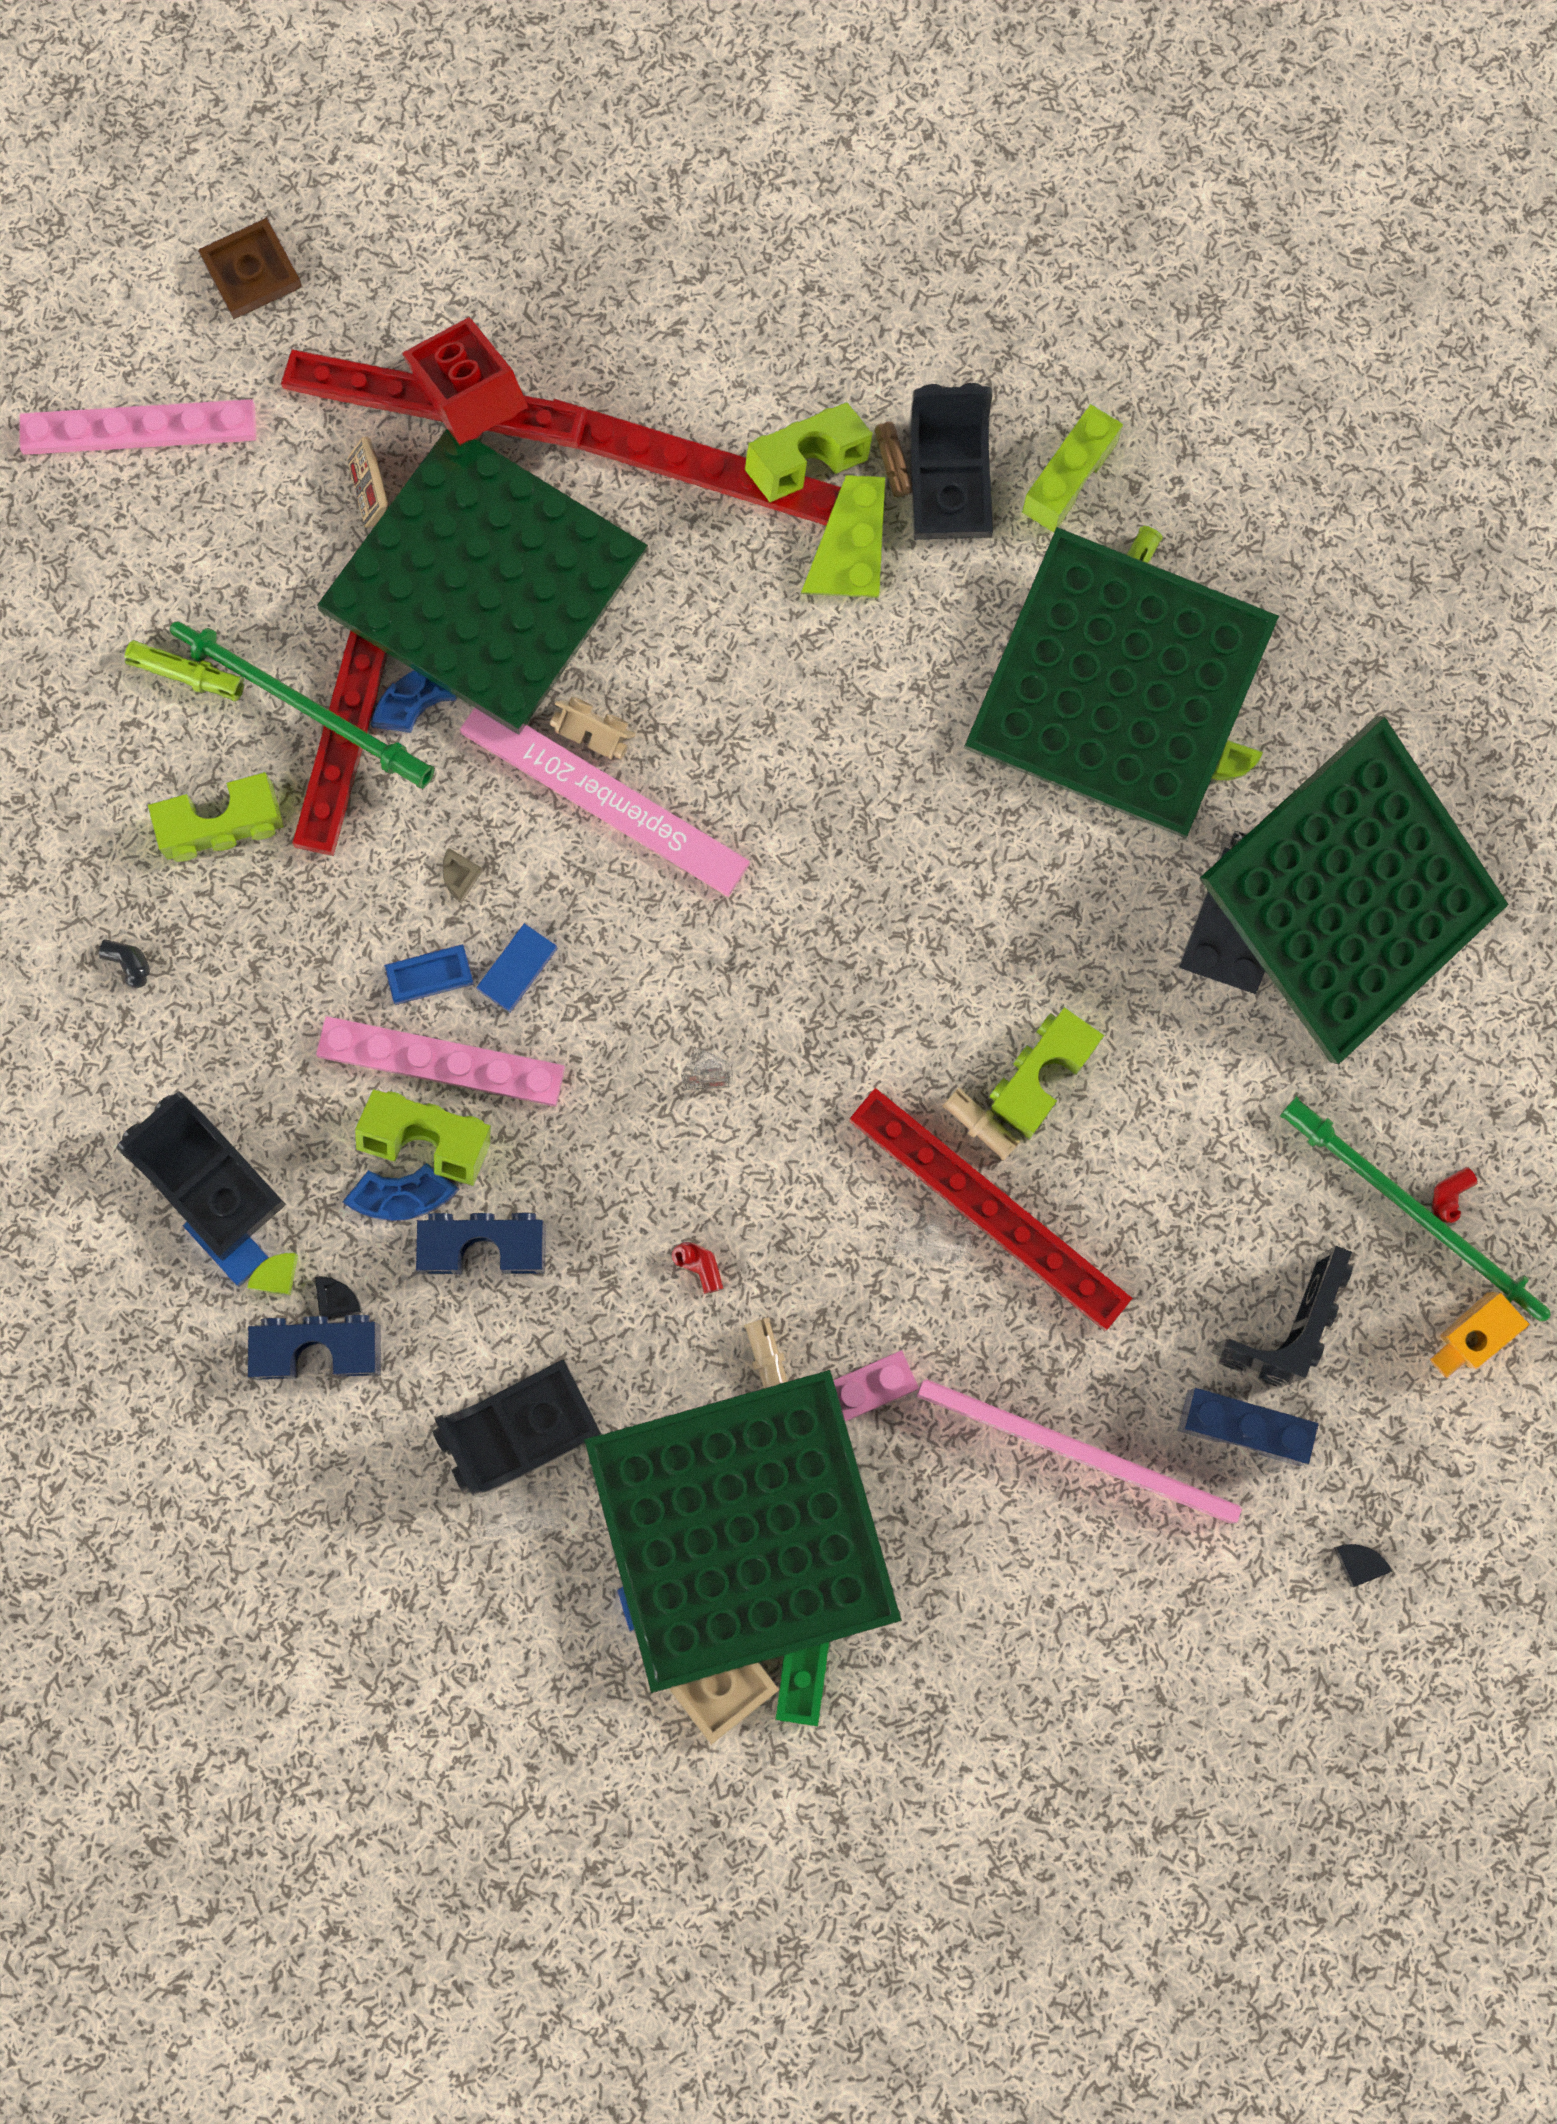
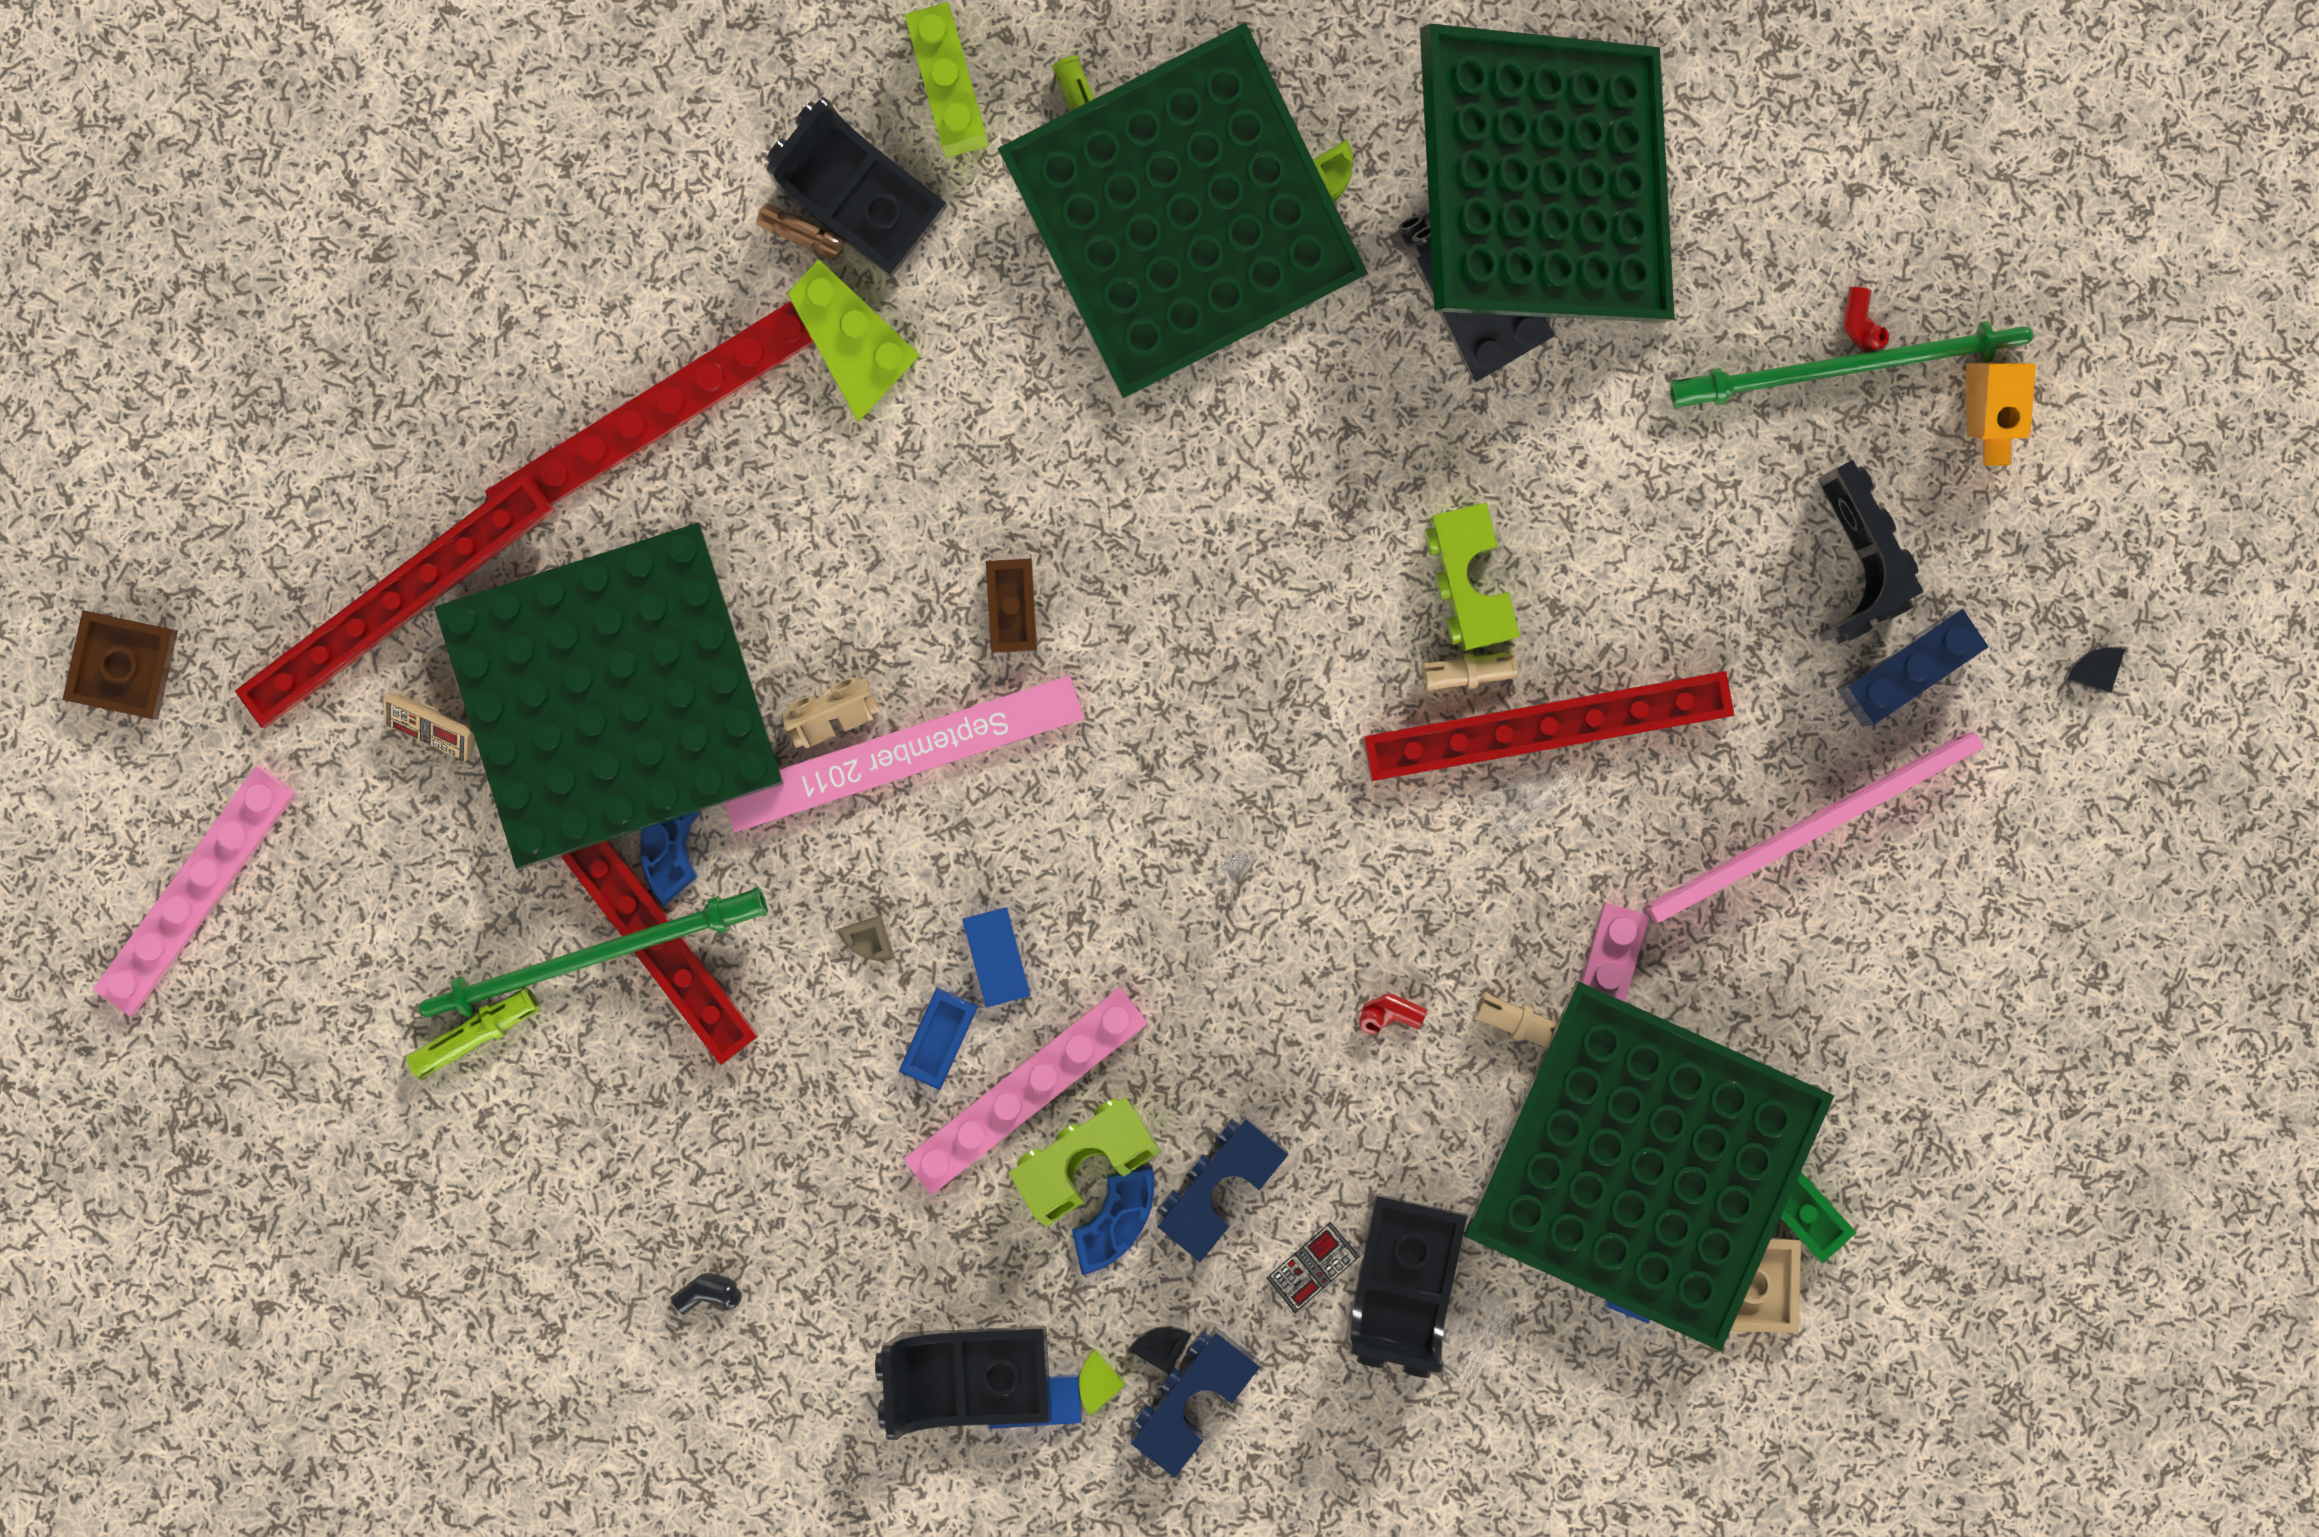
camera: 50 degrees left, 10 degrees up
(250, 813) = (659, 1077): lime arch -> none
(466, 380) = (406, 561): red slope -> none
(477, 1357) = (1313, 1267): none -> slope
(763, 786) = (1011, 606): none -> reddish brown plate
(779, 459) = (735, 270): lime arch -> none

